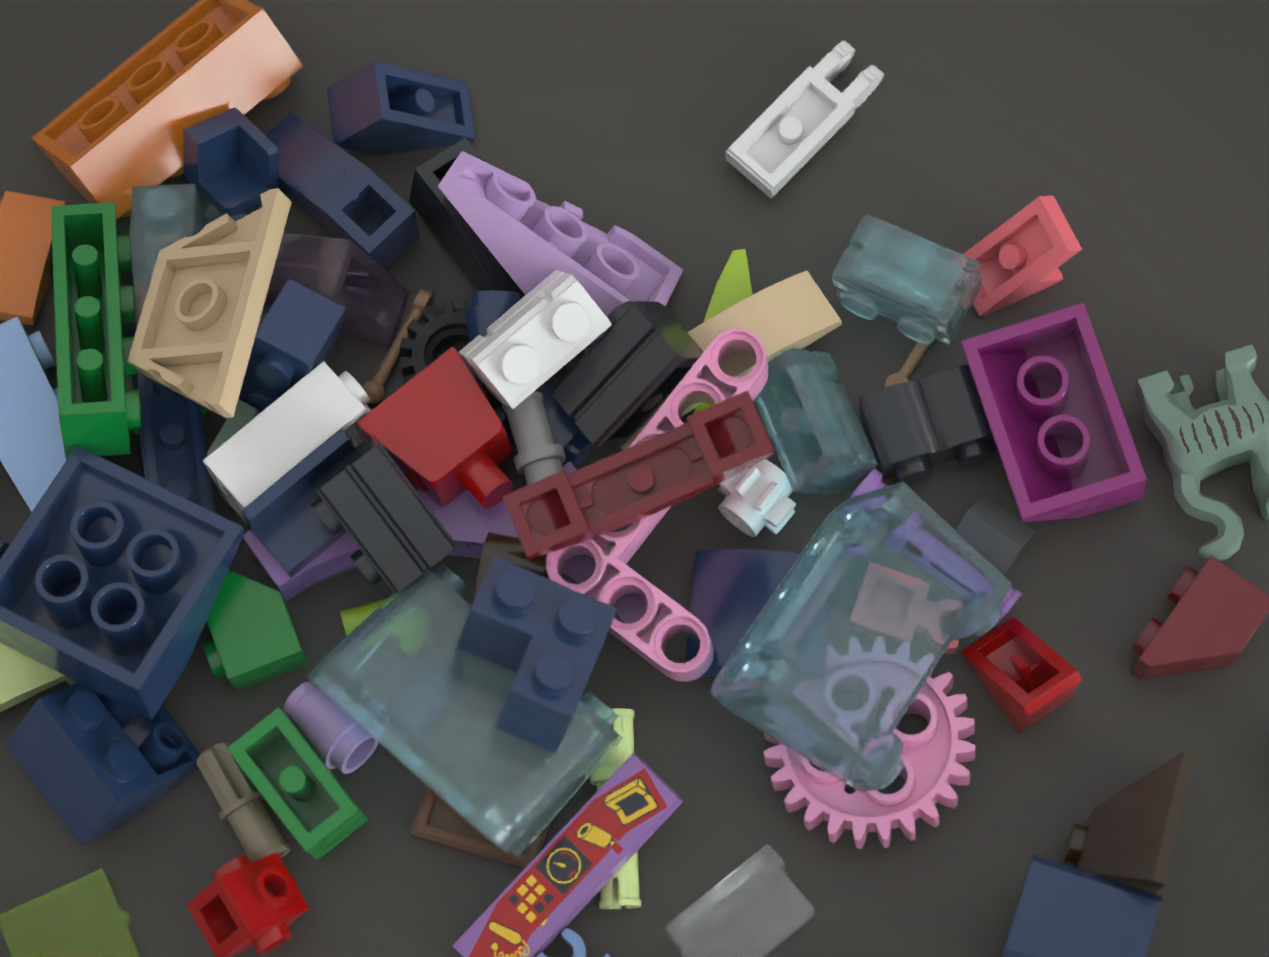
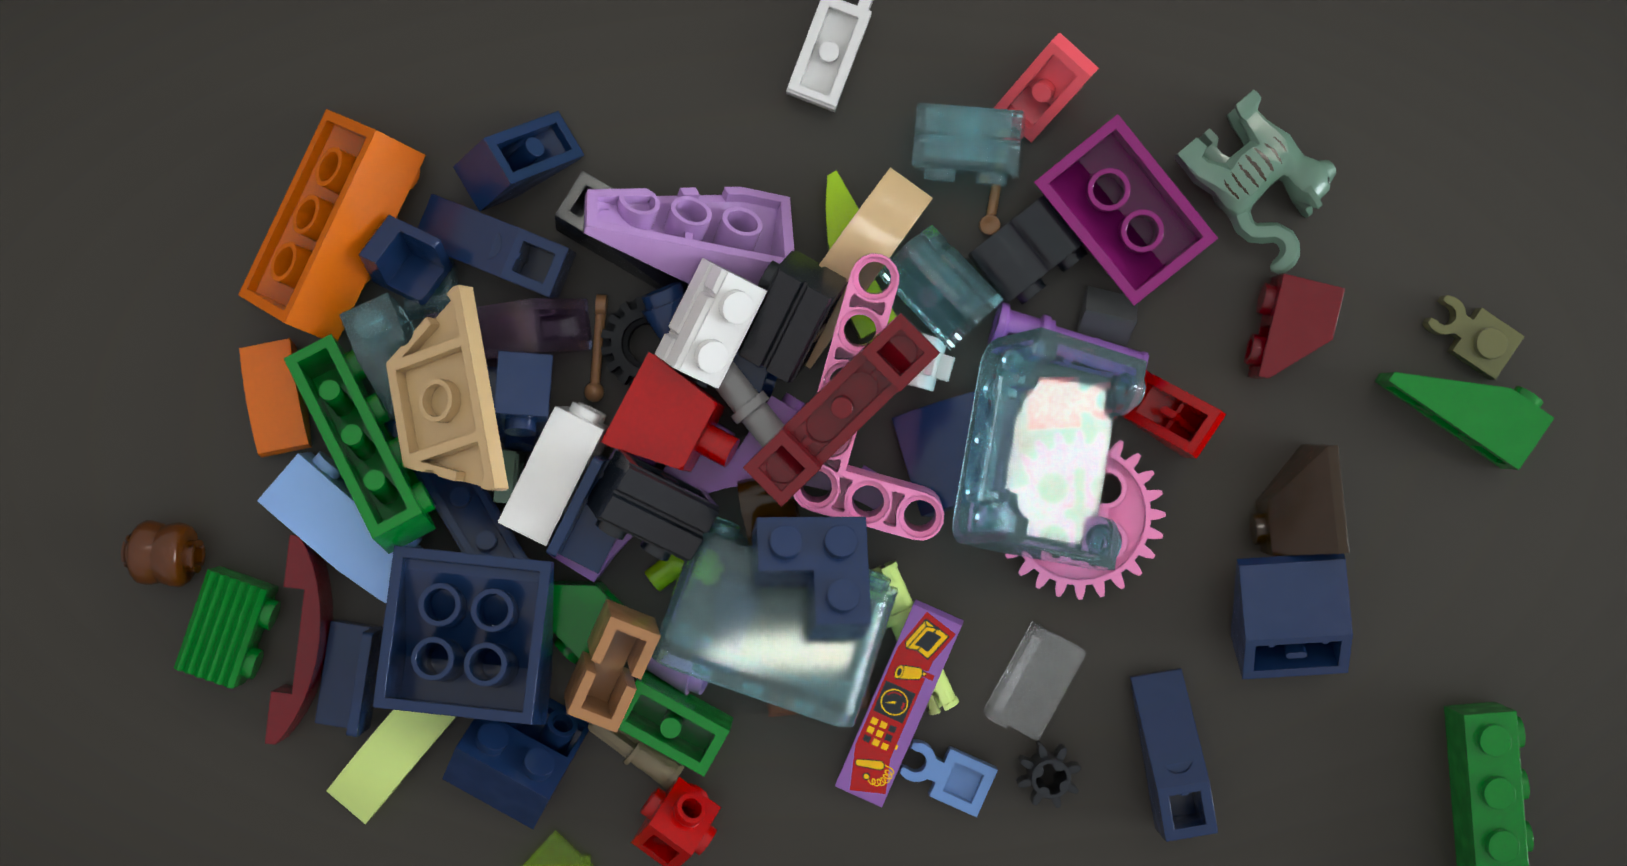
camera: 20 degrees left, 15 degrees up
(237, 691) = (600, 683): none -> medium nougat piece

